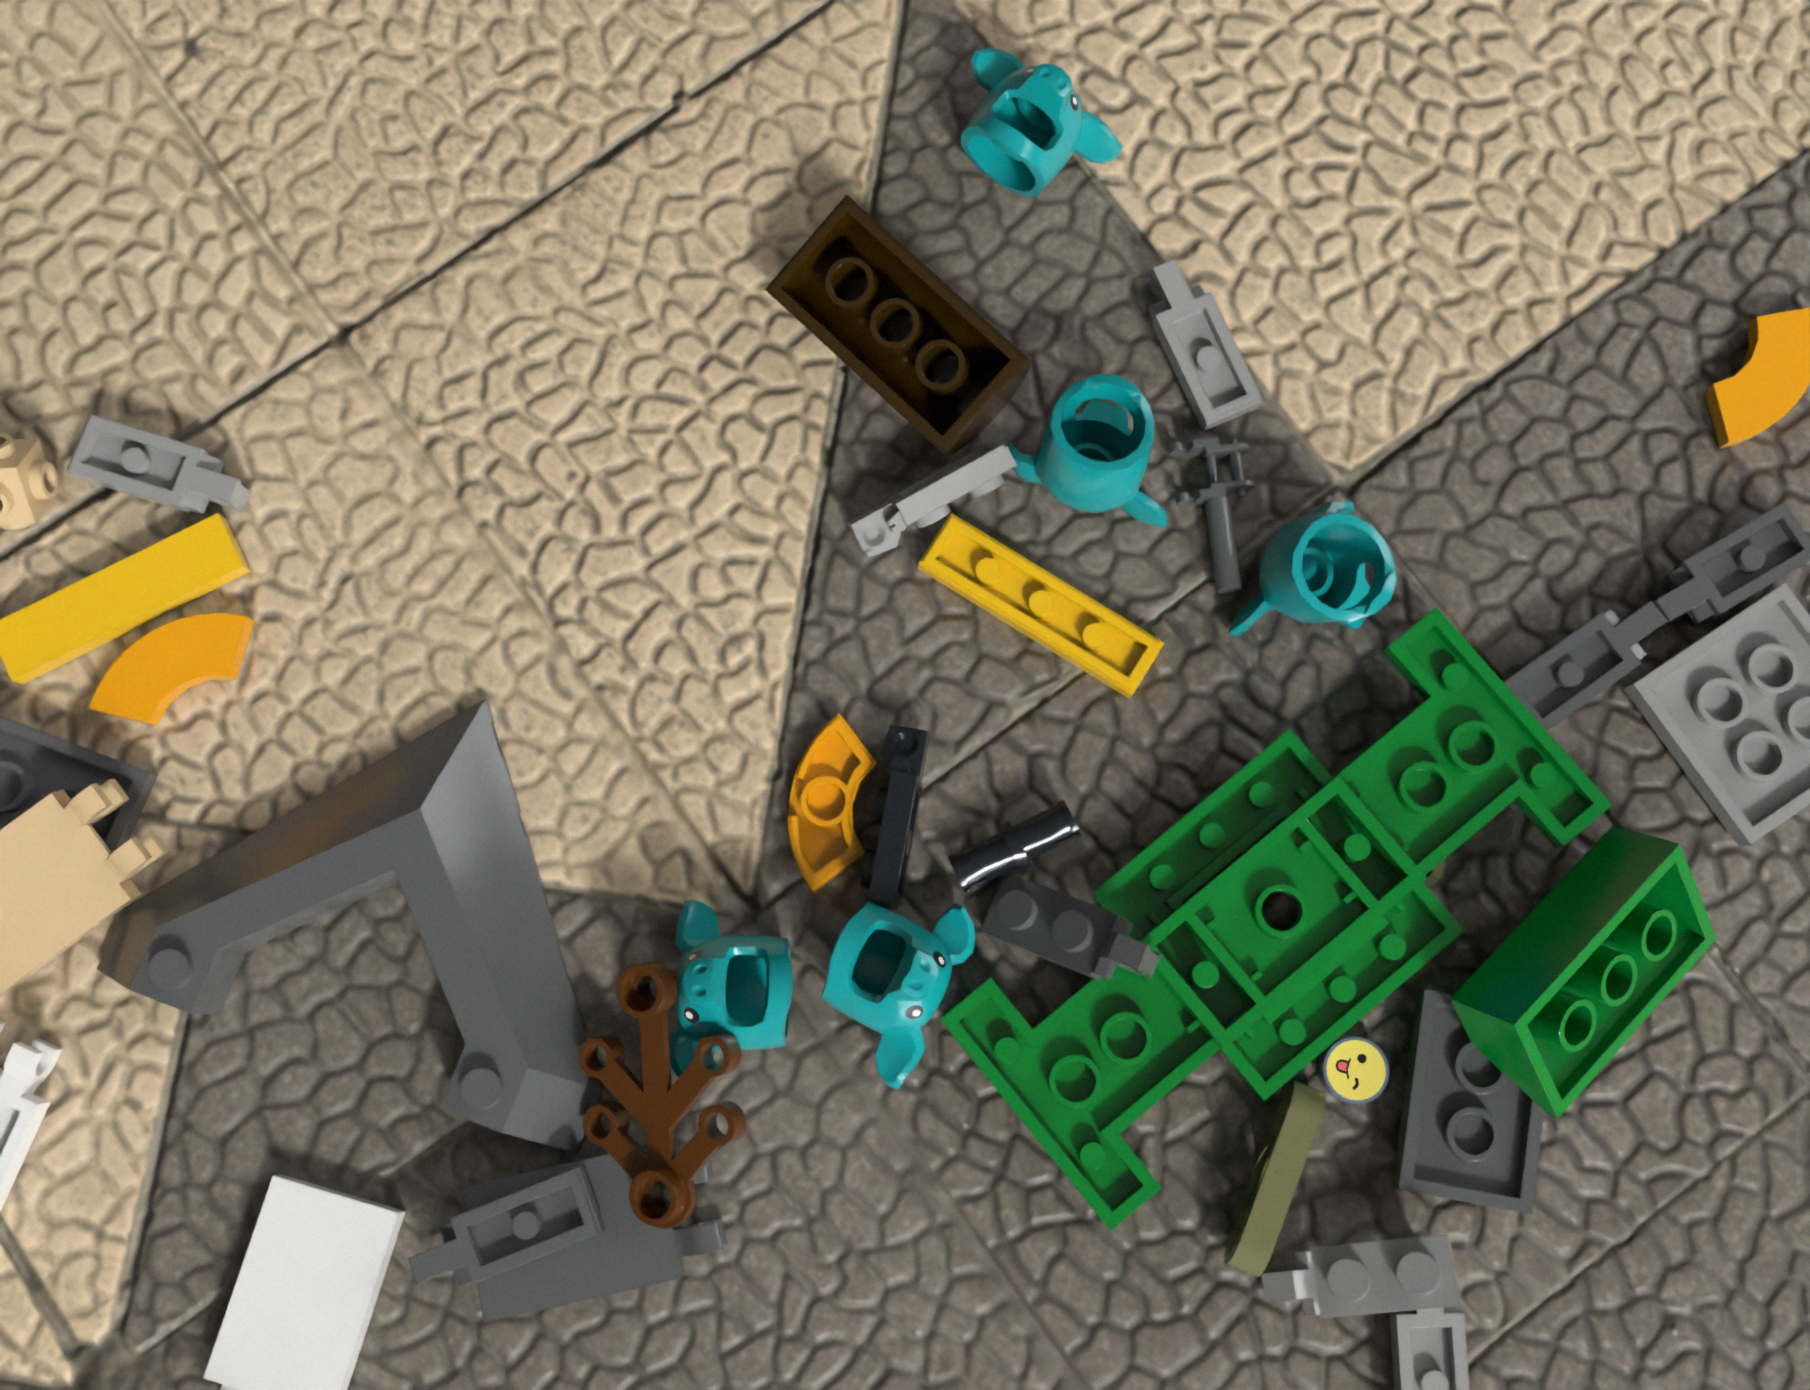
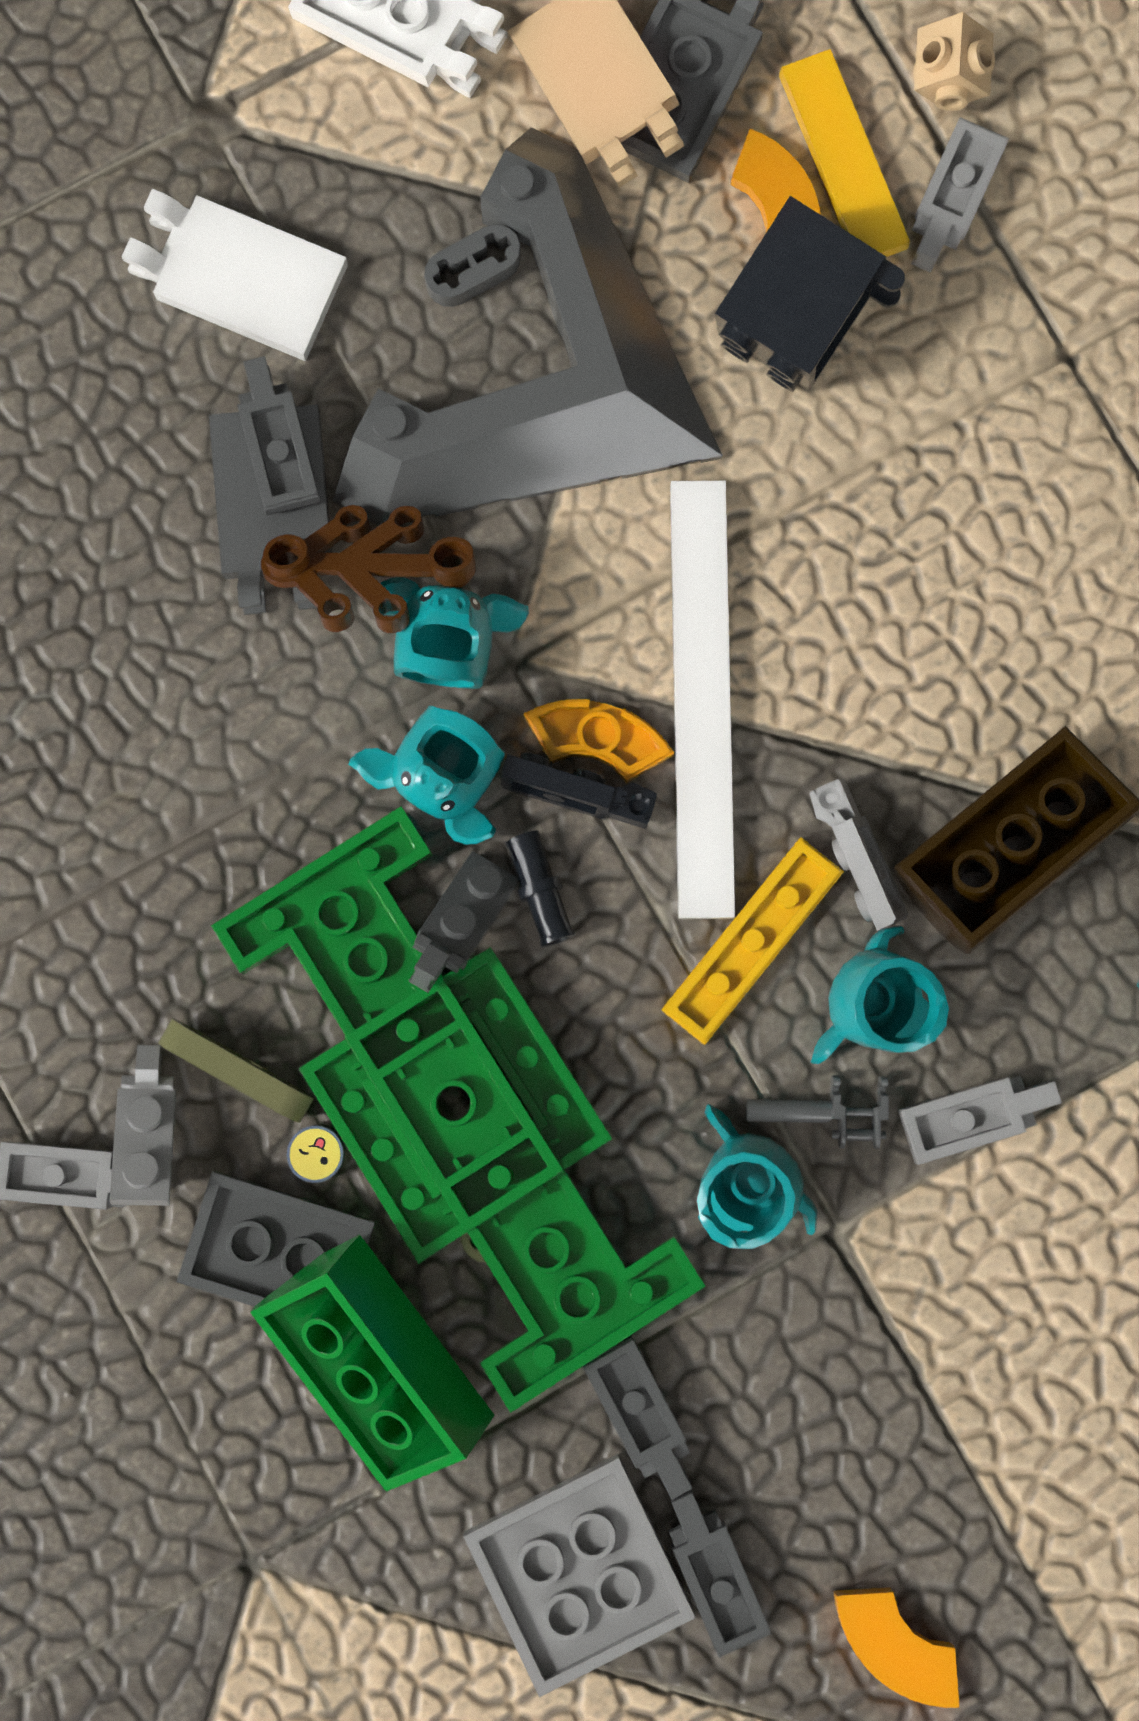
camera: 95 degrees right, 5 degrees up
(260, 1027) = (467, 254): none -> dark grey beam
(292, 615) = (802, 295): none -> black container
(770, 690) = (702, 700): none -> white tile

